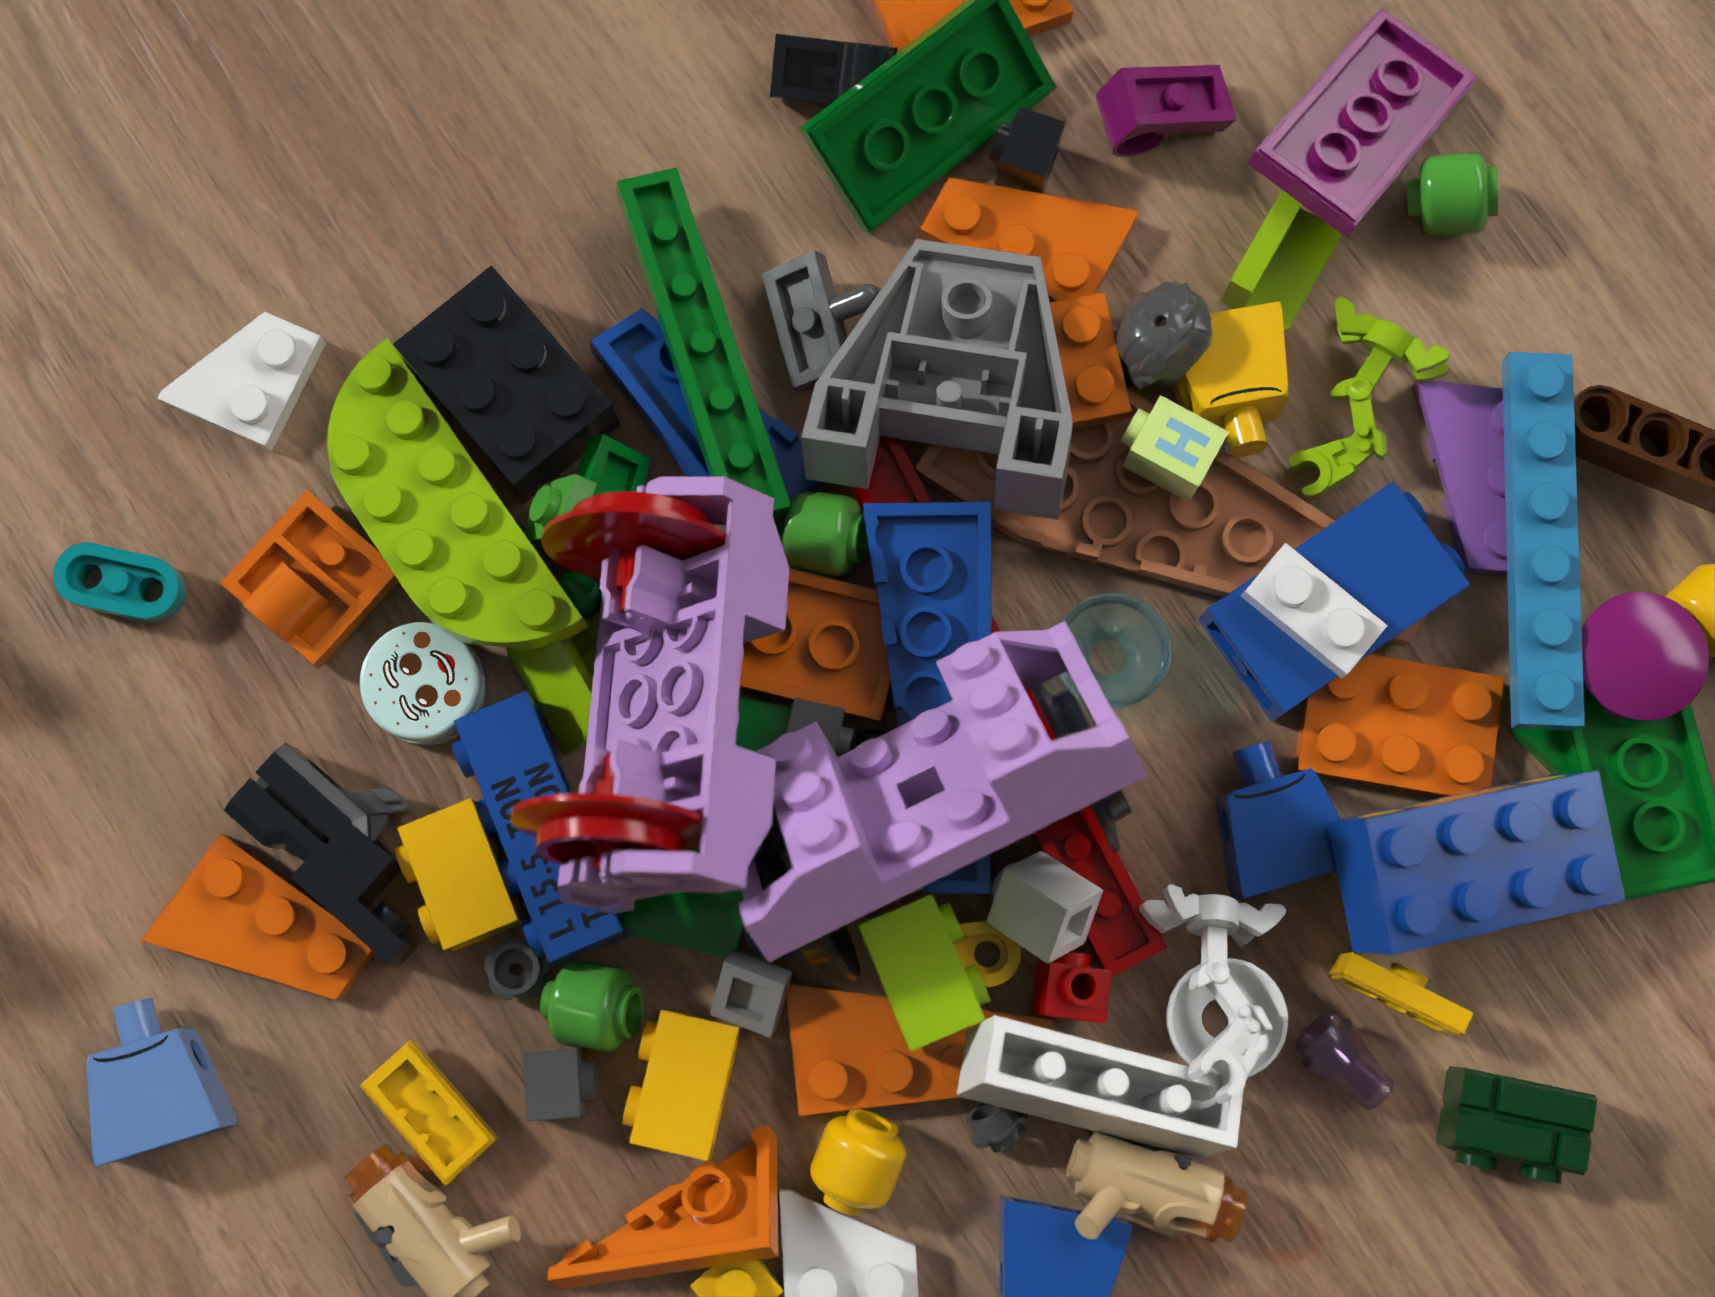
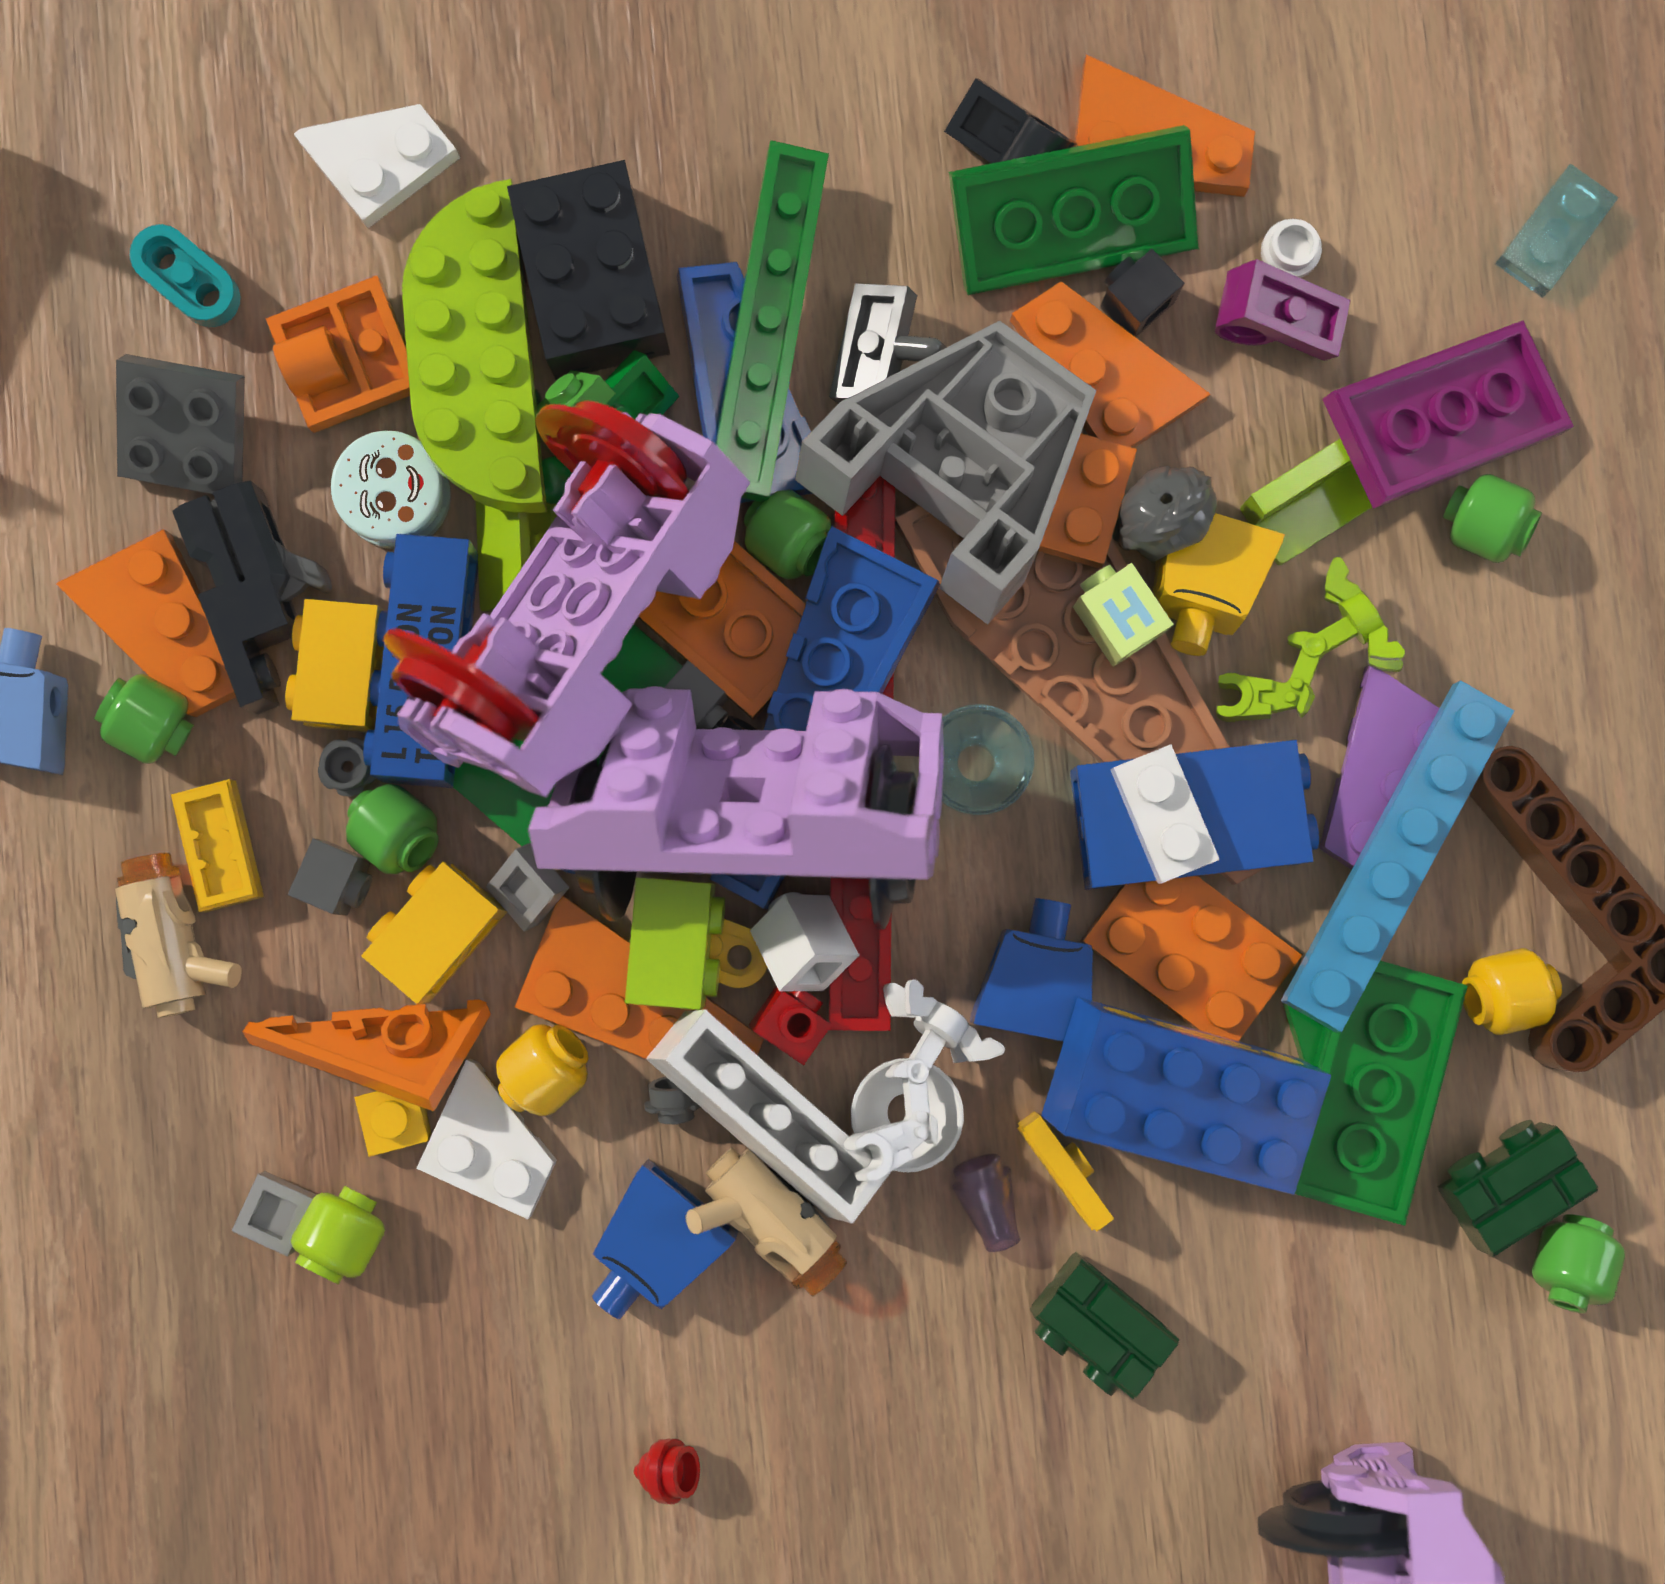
camera: 30 degrees right, 5 degrees up
(187, 725) = (179, 424): none -> dark grey plate
(295, 1025) = (144, 718): none -> bright green head
(1140, 43) = (1292, 247): none -> white plate
(1643, 656) = (1427, 999): magenta dish -> none

